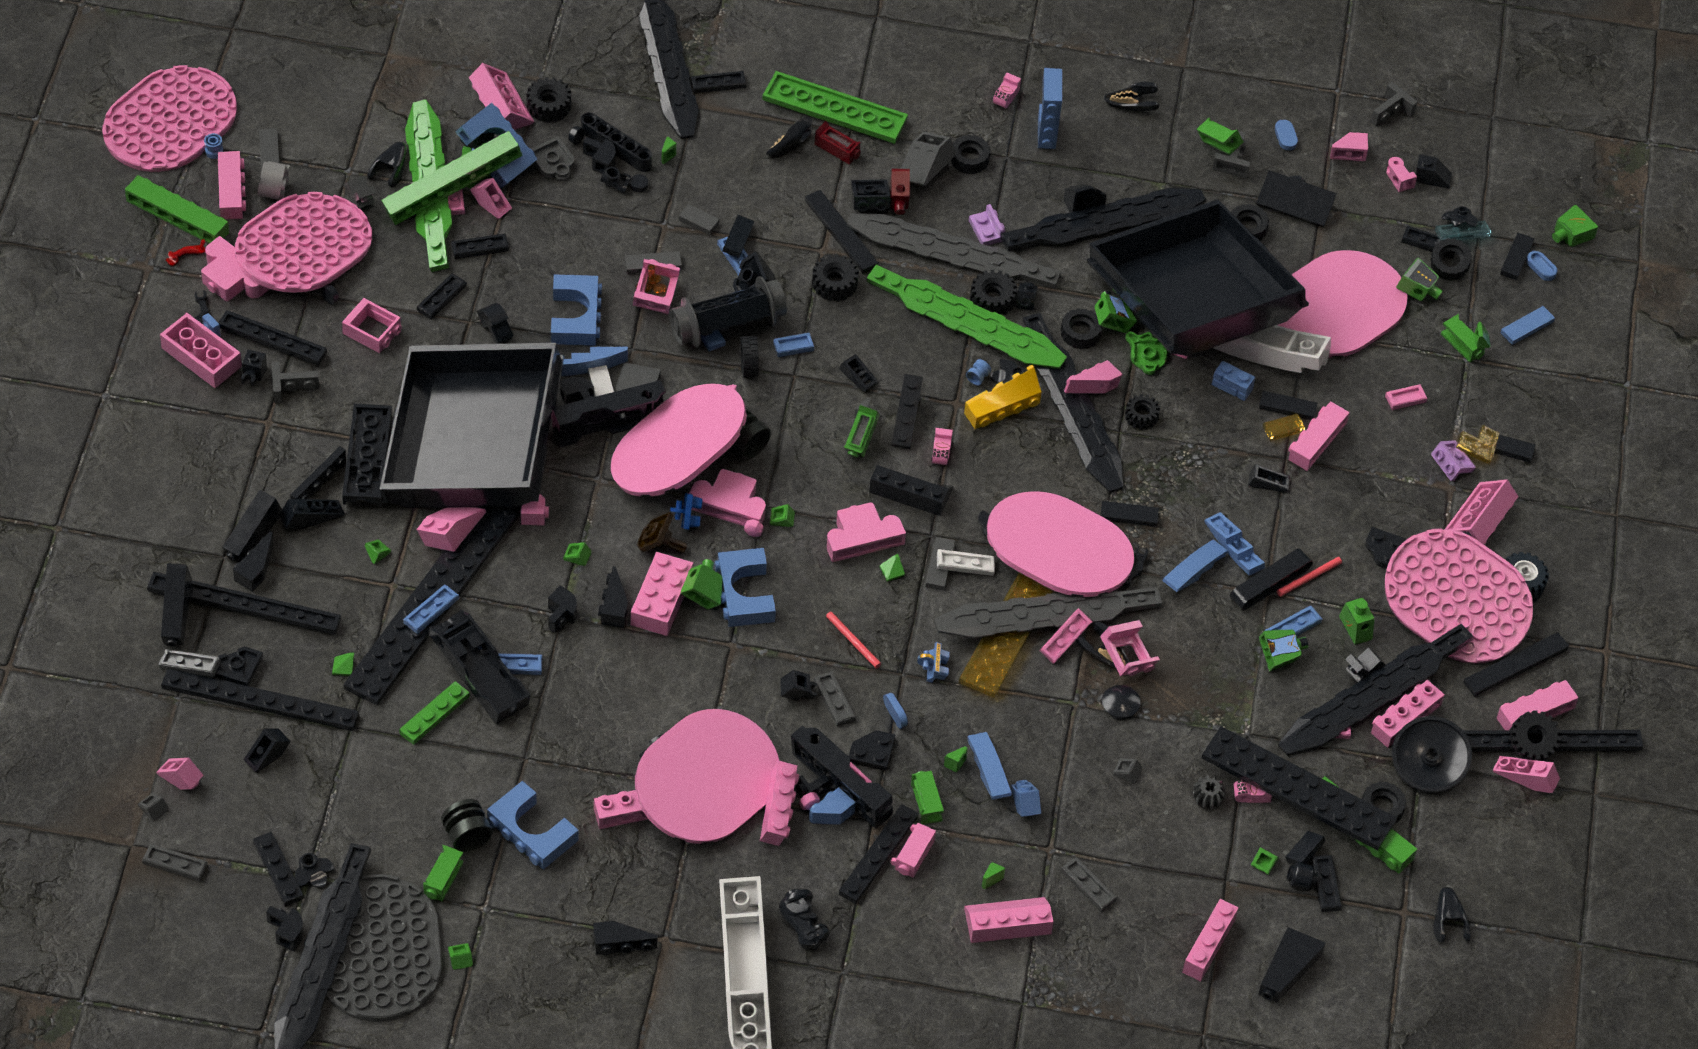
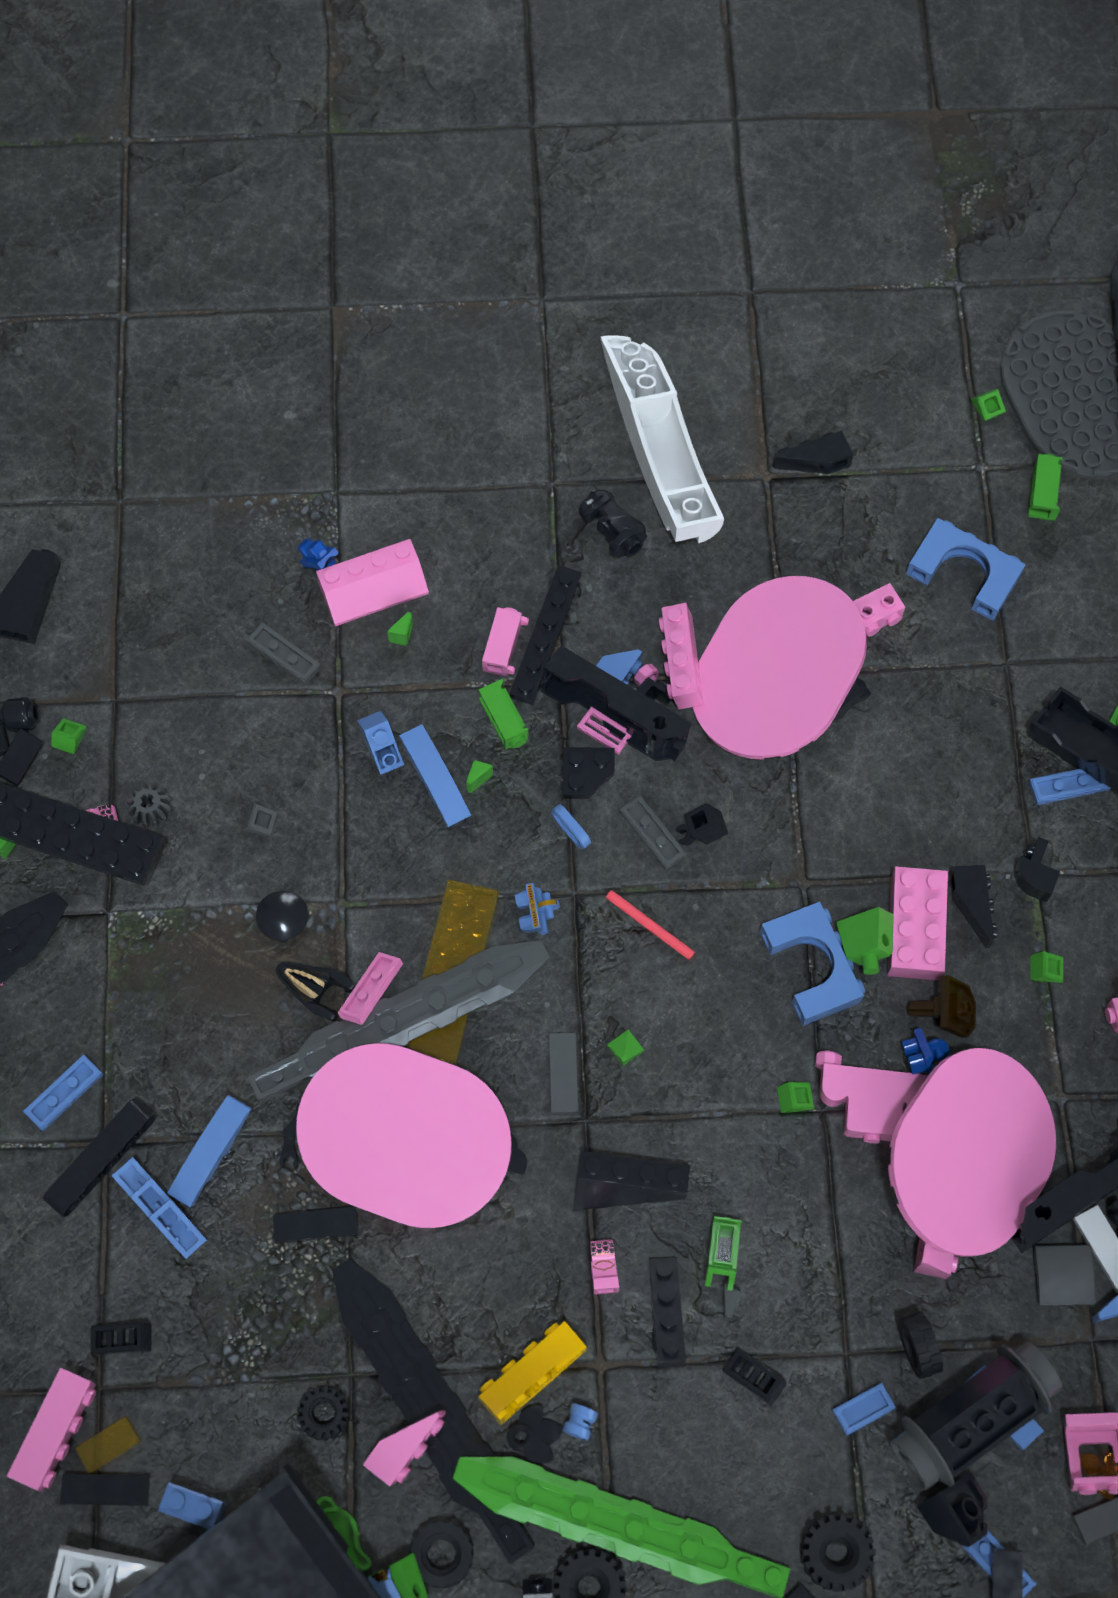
camera: 170 degrees right, 15 degrees up
(466, 825) = (1041, 539): pearl dark grey wheel -> none
(752, 437) = (879, 1202): pearl dark grey wheel -> none
(863, 532) = (679, 1090): bright pink brick -> none
(965, 562) = (529, 1077): white tile -> none
(1048, 941) = (316, 554): none -> blue hips
(1124, 635) = (297, 999): bright pink window -> none
(1210, 940) = (123, 605): bright pink brick -> none
(1281, 647) = (73, 1040): torso -> none
(1309, 576) = (44, 1184): coral bar -> none

